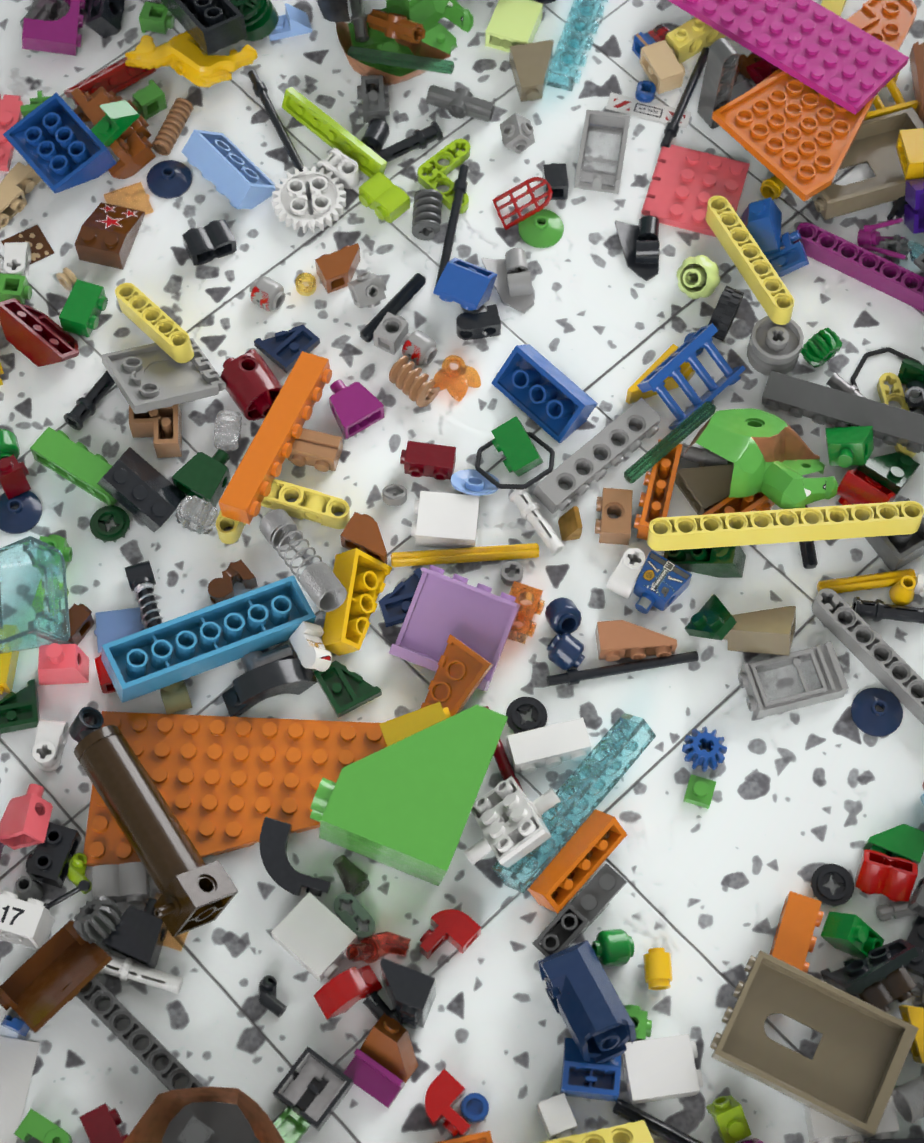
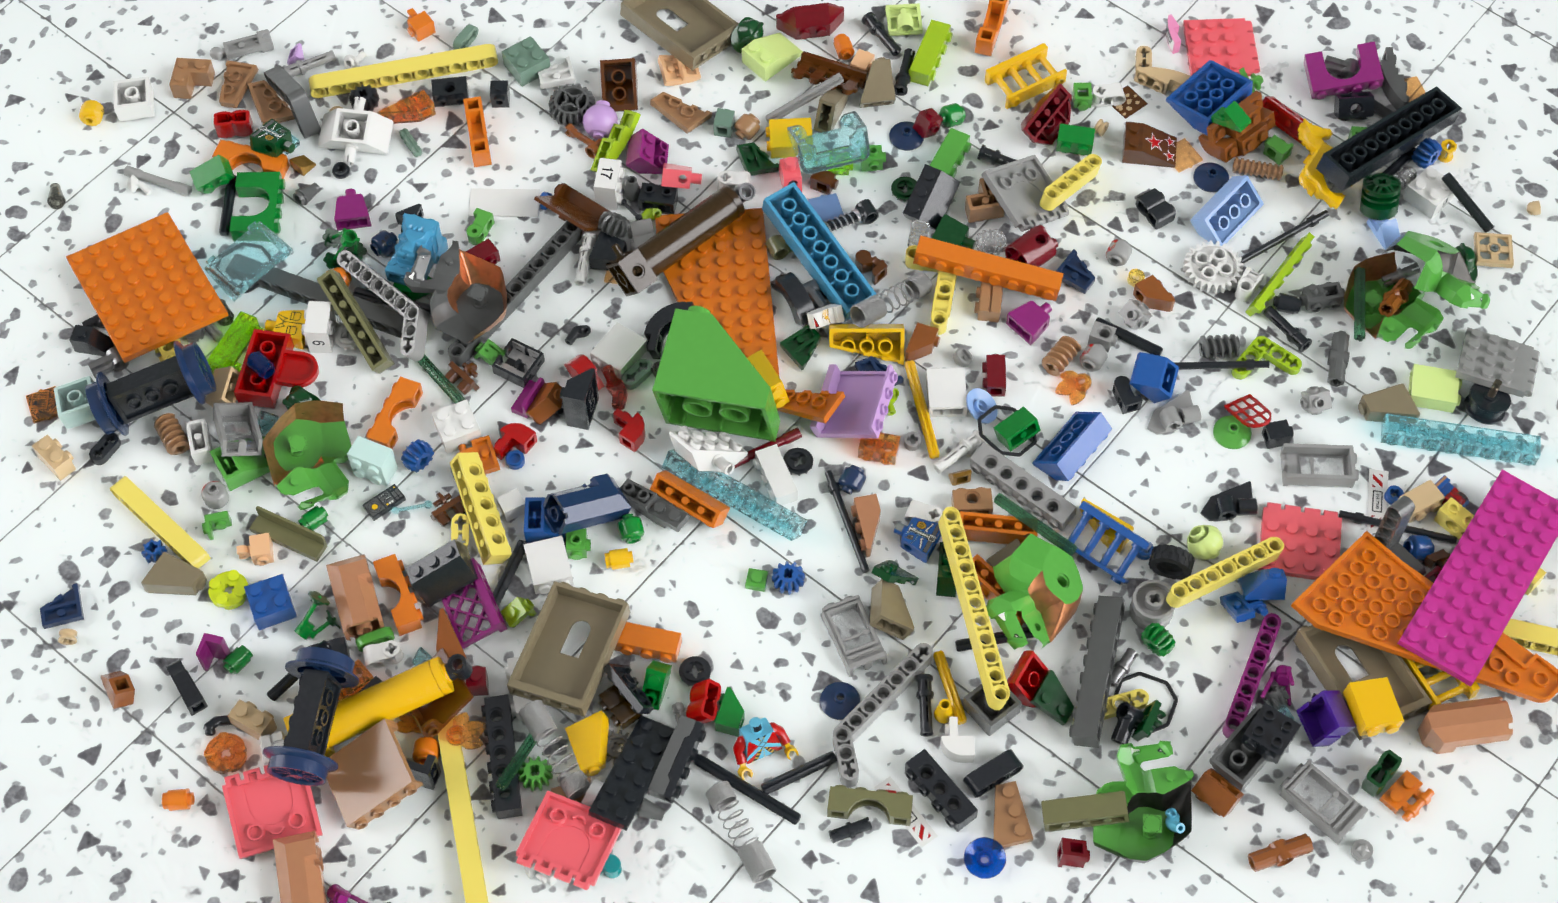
camera: 85 degrees right, 5 degrees down
(384, 197) = (1228, 316): lime brick -> none
(563, 615) = (879, 474): dark blue head -> none
(849, 445) = (1063, 659): green torso -> none

